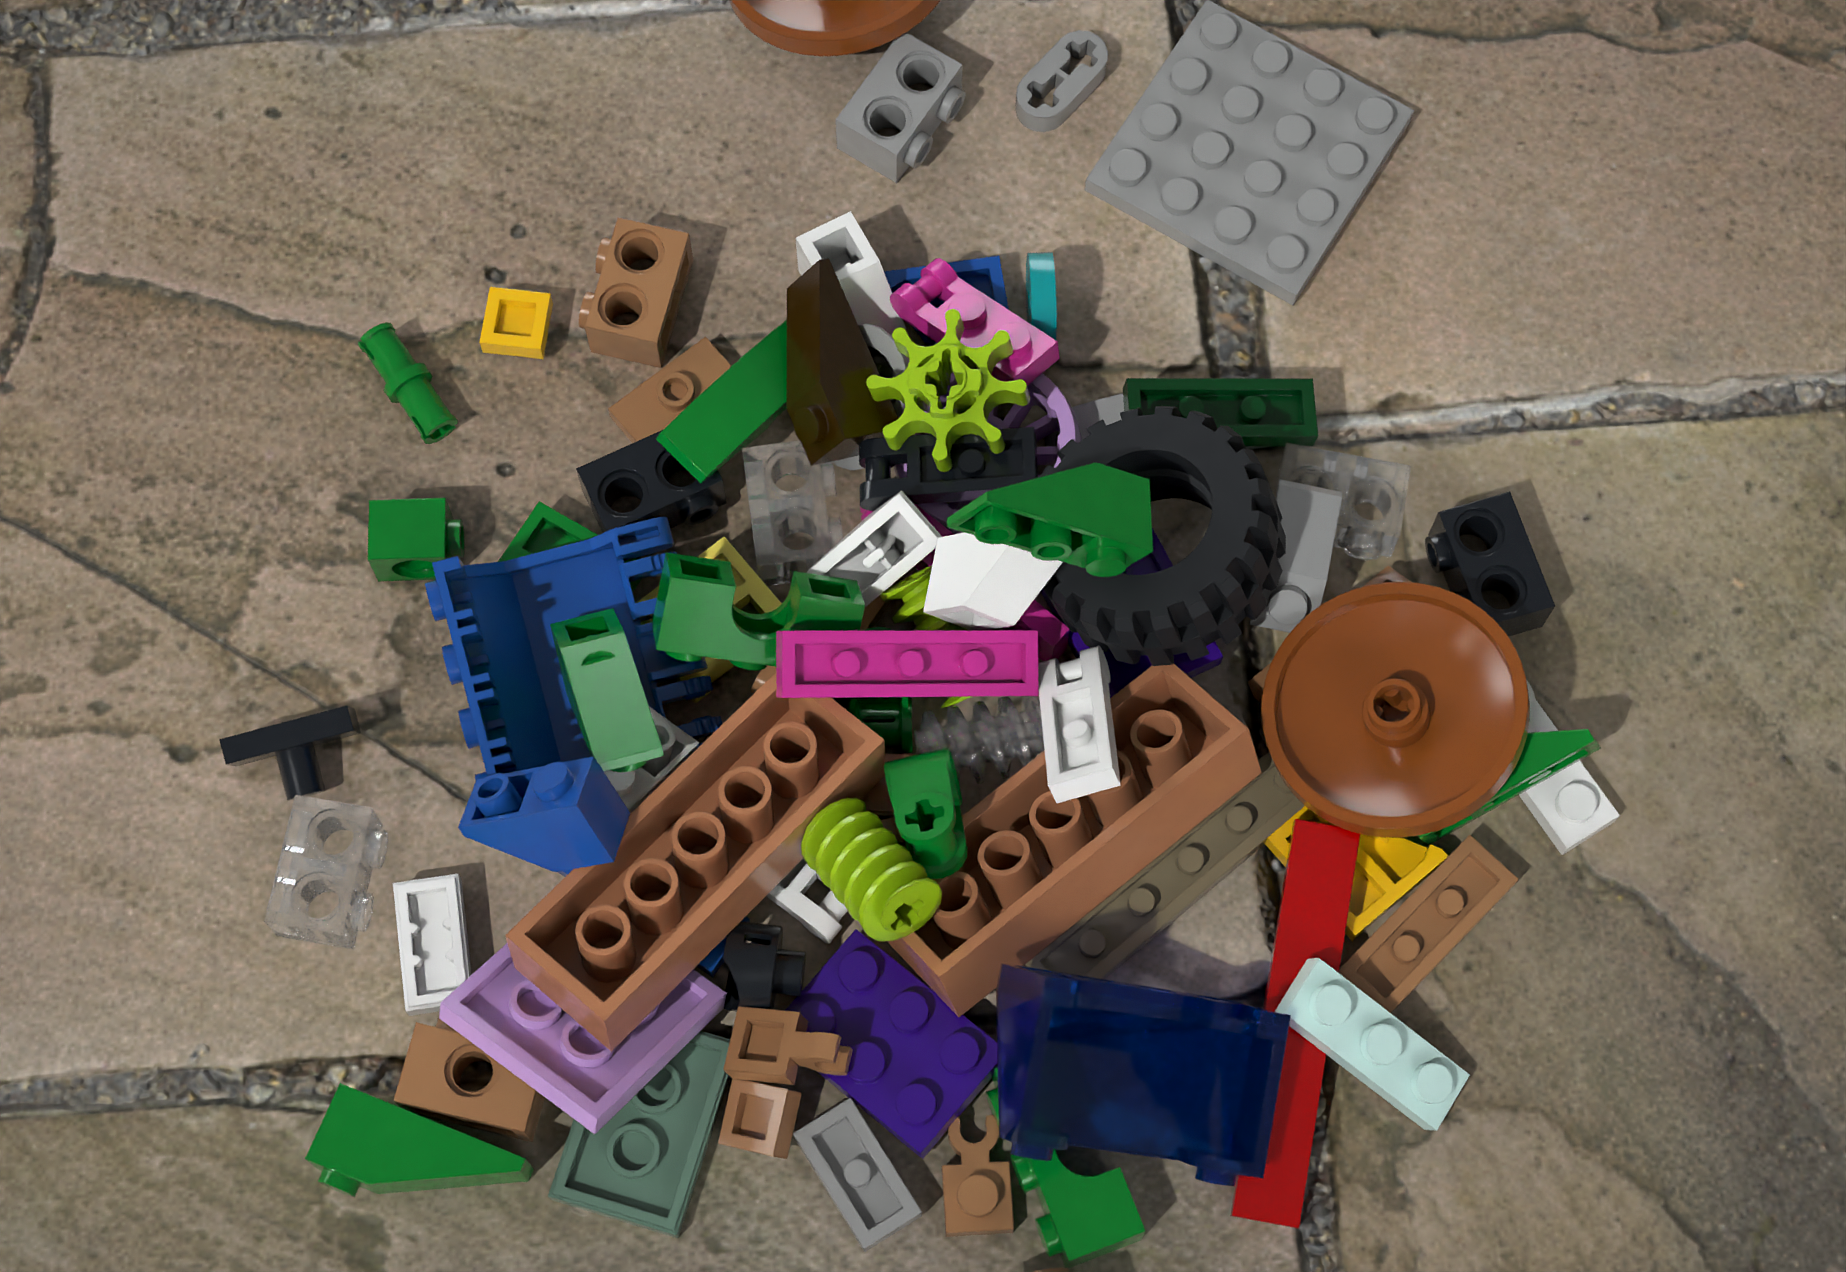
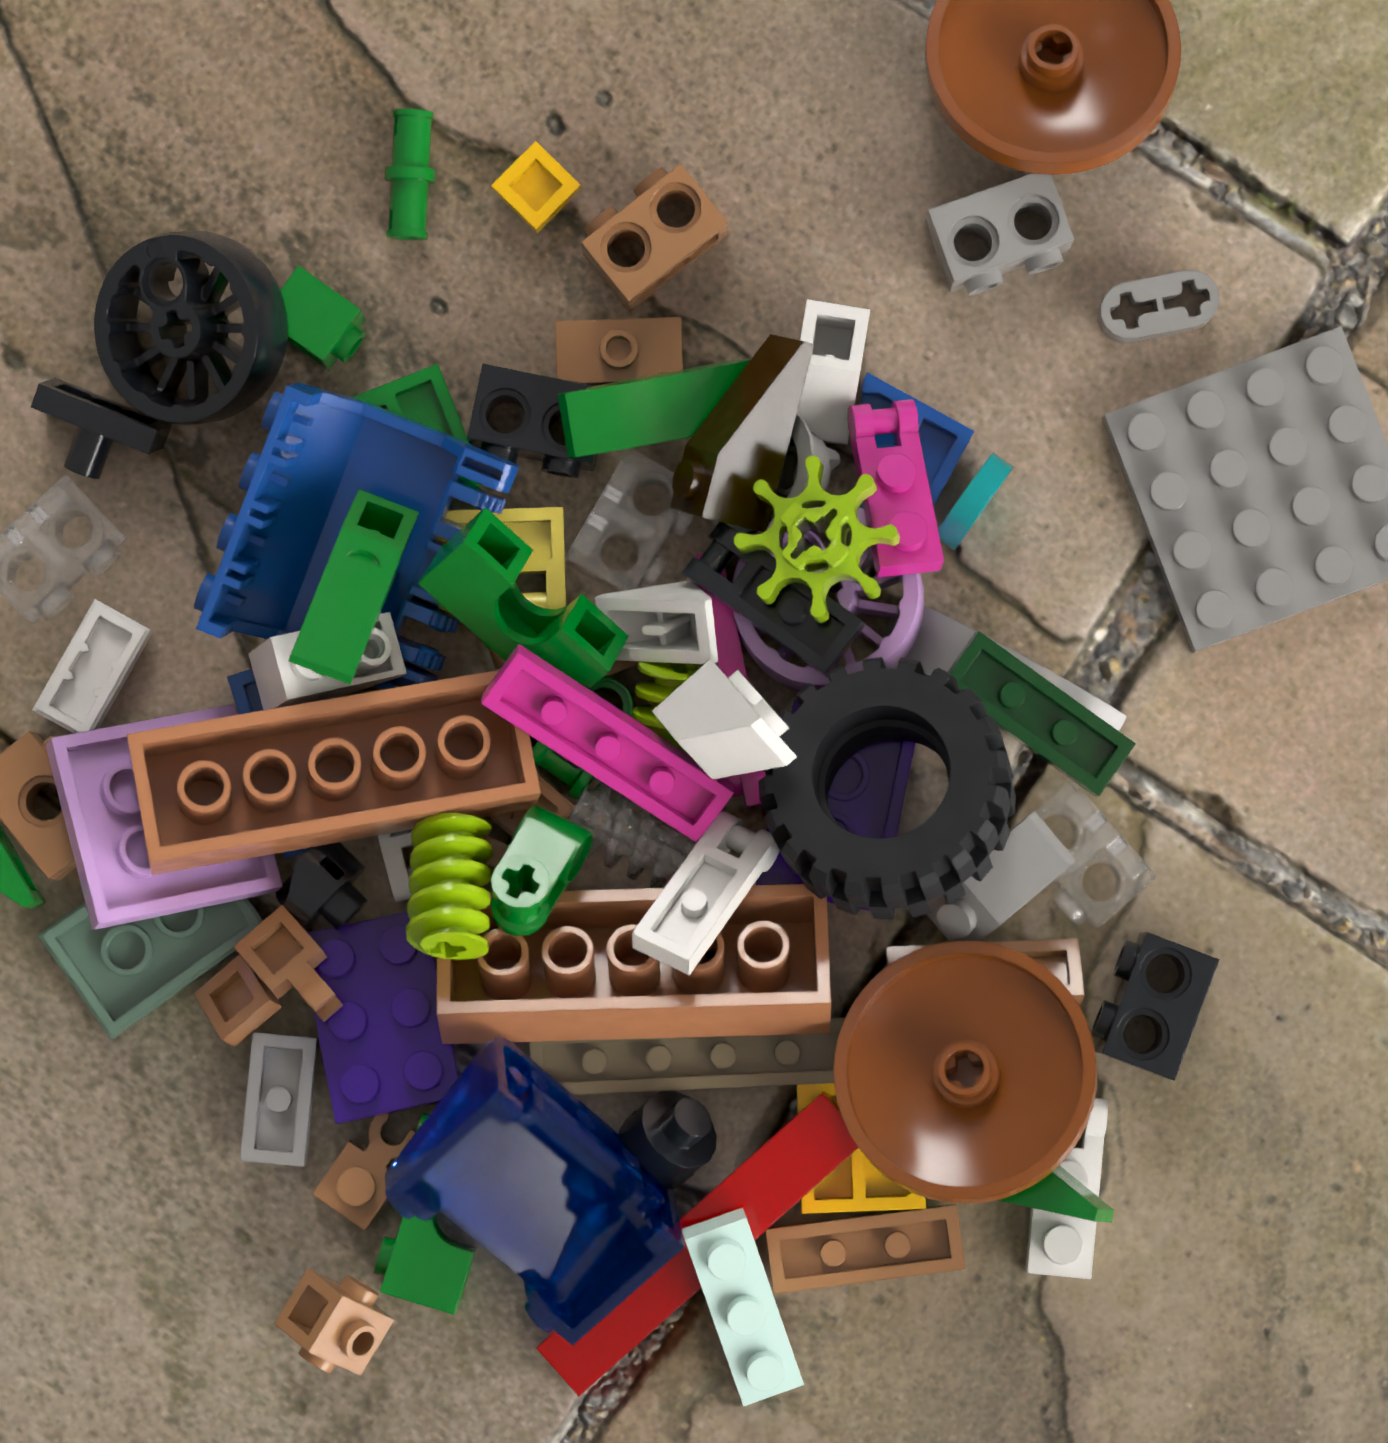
camera: 40 degrees right, 15 degrees up
(245, 582) = (145, 276): none -> black piece
(549, 815) = (228, 662): blue slope -> none
(1074, 516) = (811, 747): green slope -> none
(1202, 953) = (670, 1137): none -> black piece

